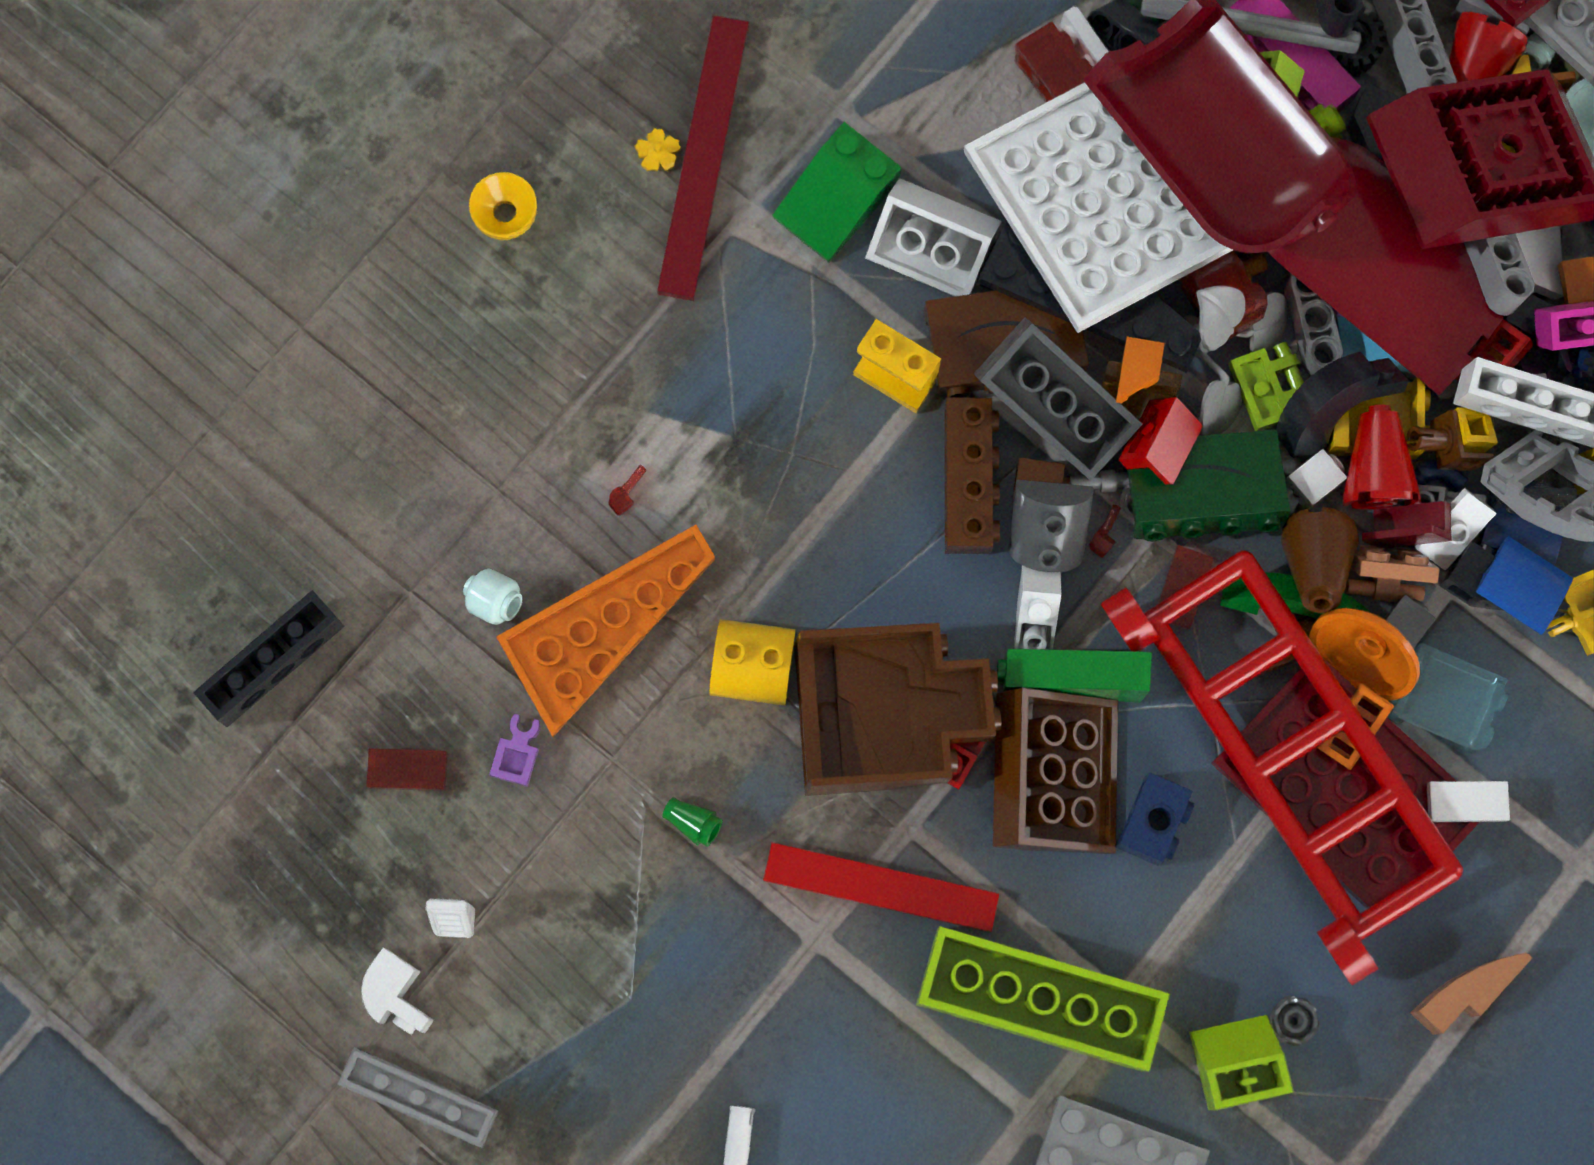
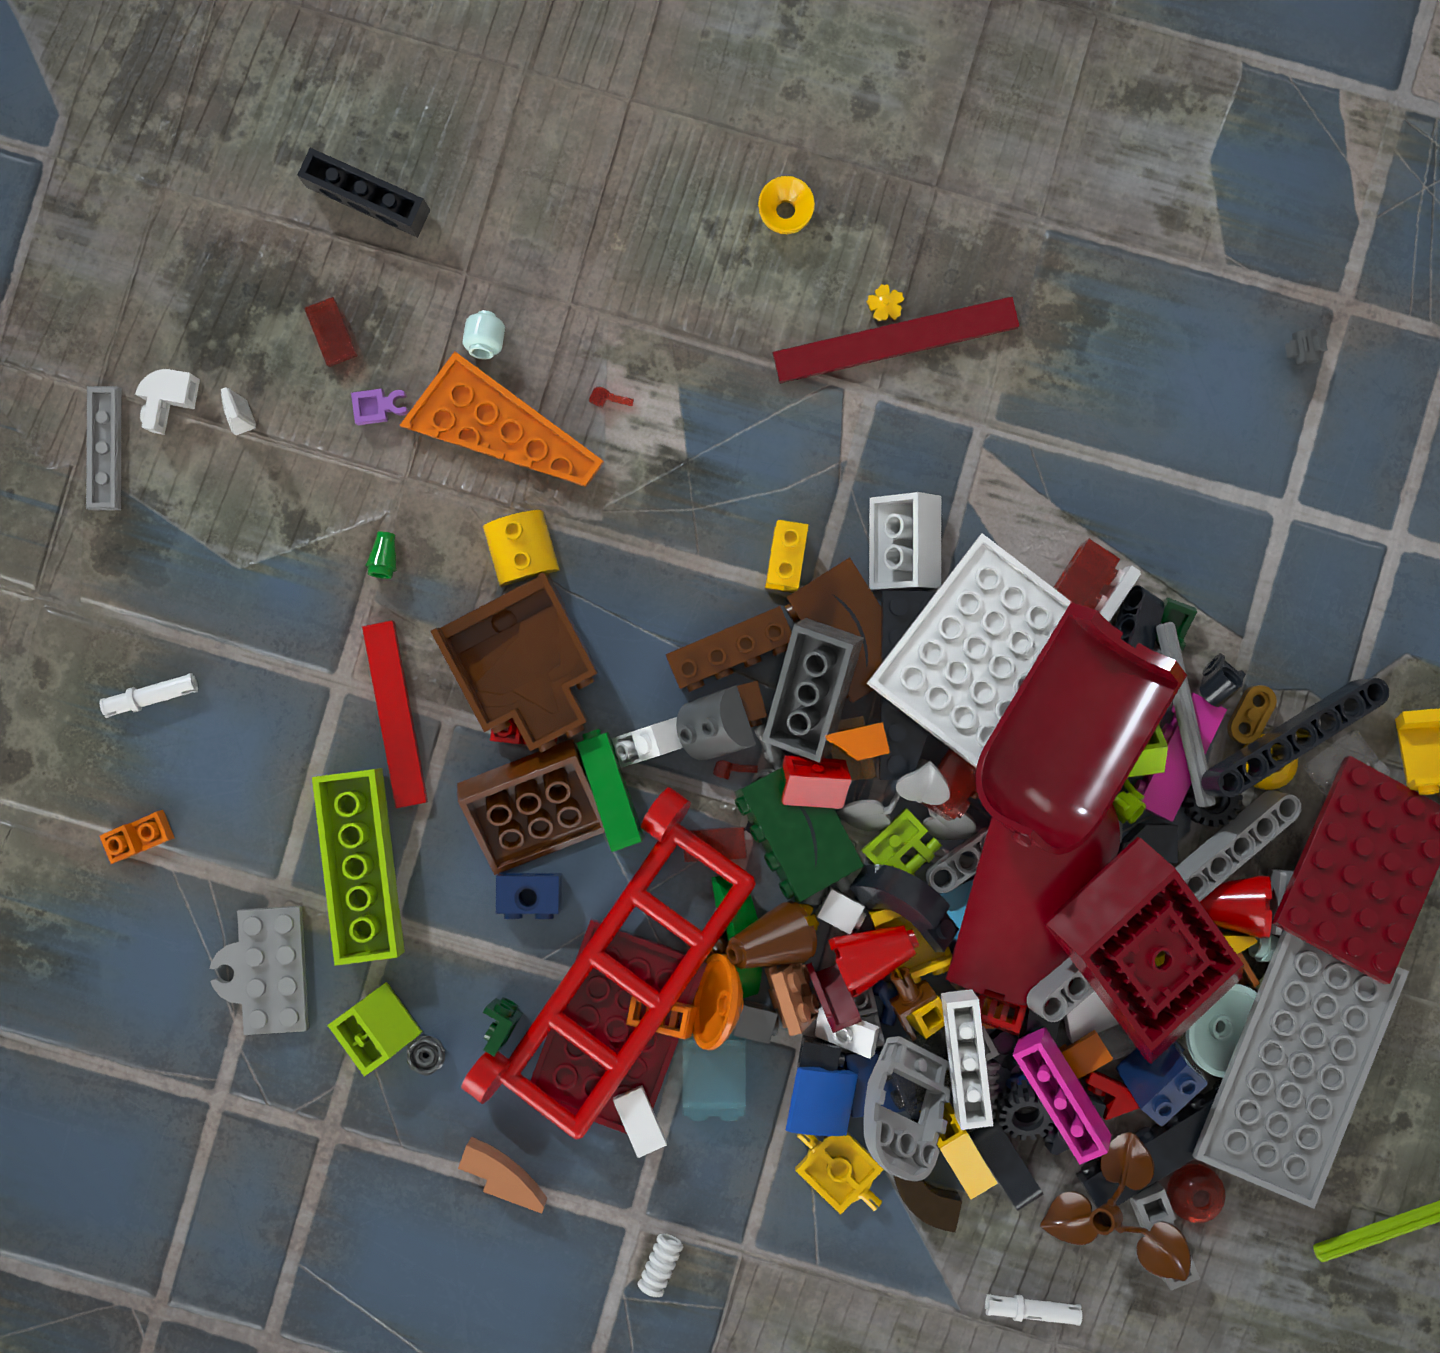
camera: 75 degrees right, 10 degrees up
(837, 192) = (910, 453): green slope -> none
(1301, 911) = (506, 1018): none -> dark green bracket

